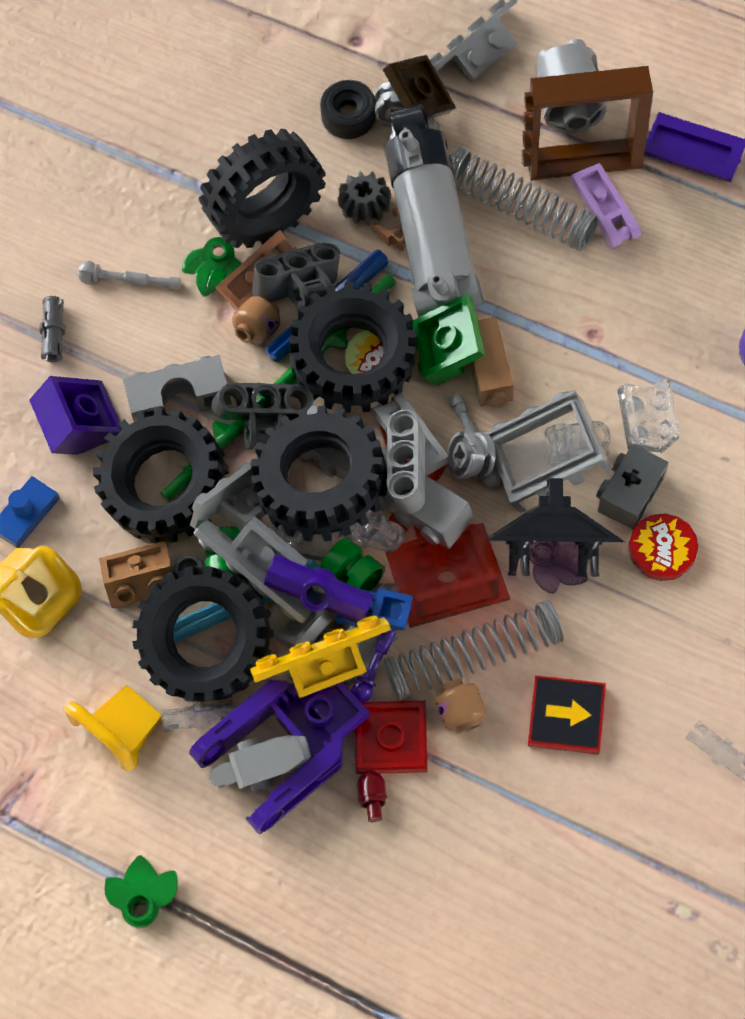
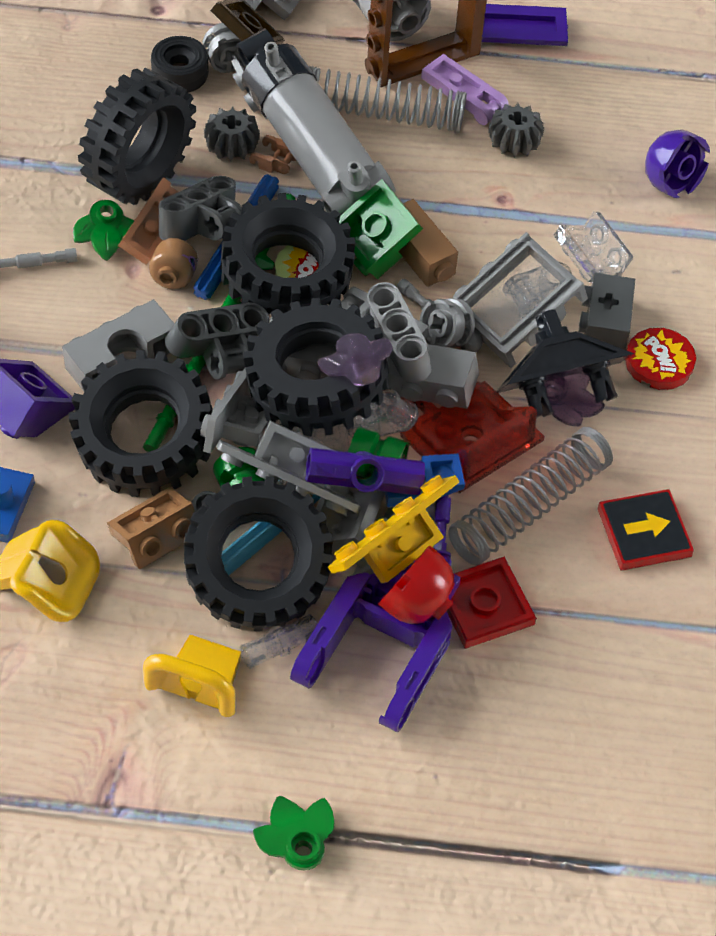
camera: 30 degrees left, 10 degrees down
(260, 762) = (372, 658): light grey hinge -> none
(320, 717) = (421, 590): none -> red cylinder
(344, 484) = (357, 358): none -> clear purple plate
(372, 794) = (493, 659): dark red cylinder -> none
(460, 706) = (542, 550): medium nougat head -> none
(634, 265) = (516, 129): none -> dark grey gear

